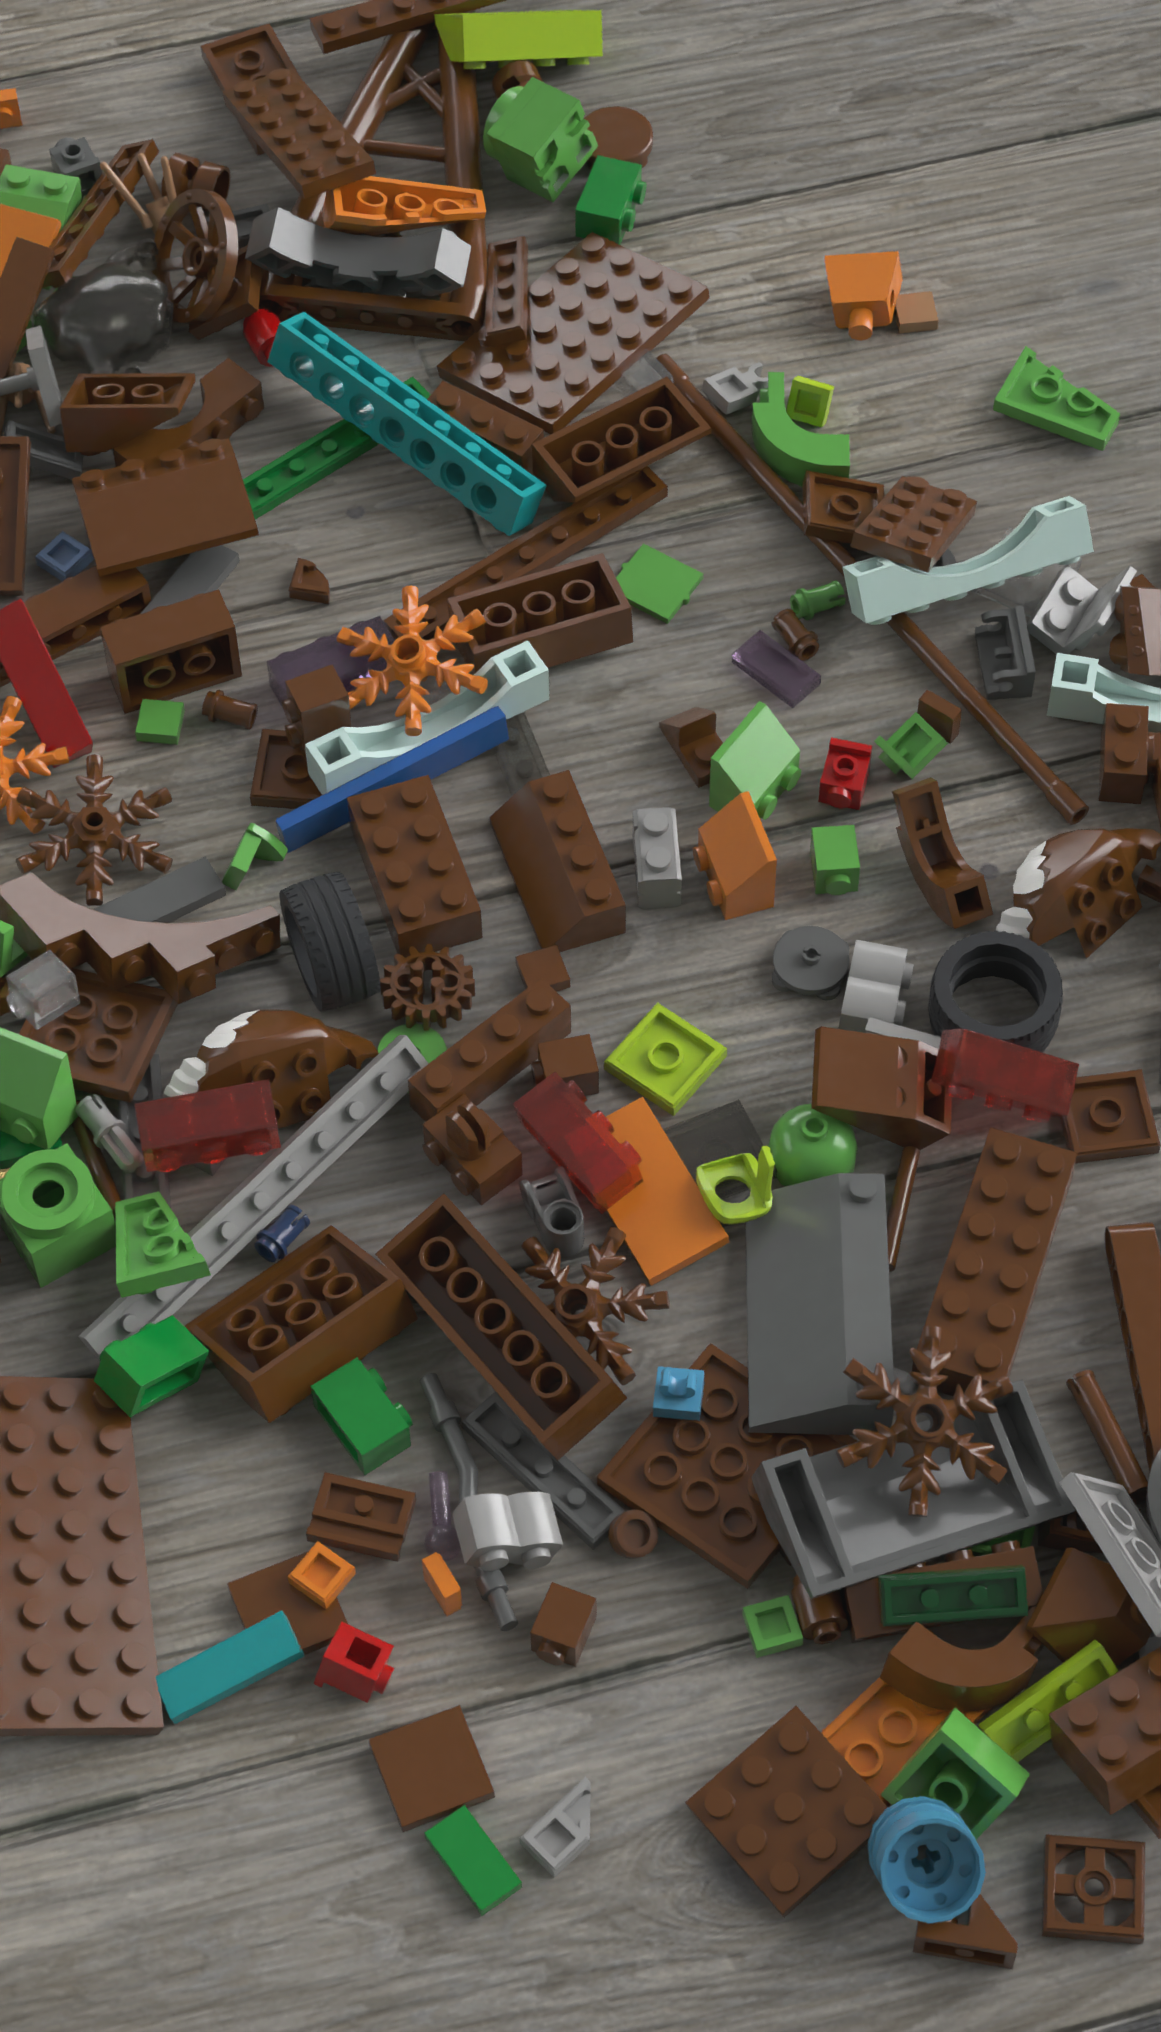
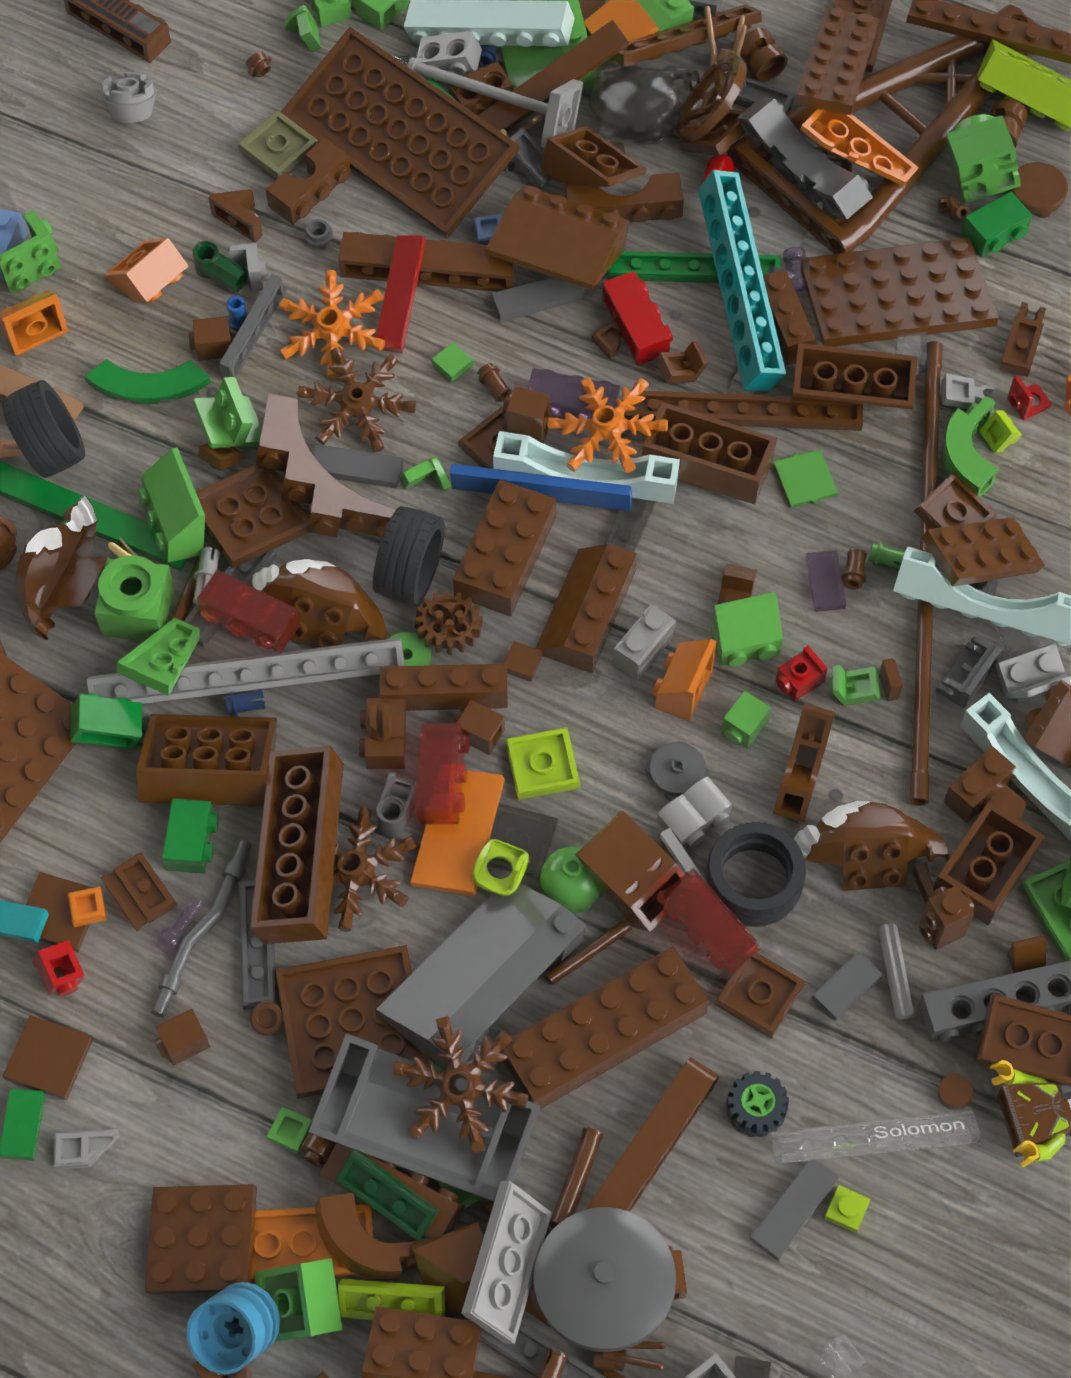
camera: 40 degrees right, 5 degrees up
(42, 990) = (238, 469): clear brick -> none
(171, 650) = (487, 324): reddish brown brick -> none
(327, 537) = (637, 317): none -> red brick
(421, 553) = (682, 366): none -> reddish brown bracket
(430, 370) = (793, 258): none -> clear purple piece
(442, 1583) = (143, 962): orange tile -> none
(506, 291) = (879, 240): reddish brown tile -> none
(507, 1530) = (200, 961): light grey brick -> none
(549, 214) = (953, 207): none -> reddish brown arm
(678, 1393) = (359, 959): dark azure tile -> none
(745, 298) = (1023, 342): none -> reddish brown hinge
(803, 353) = (1022, 398): none -> red bracket

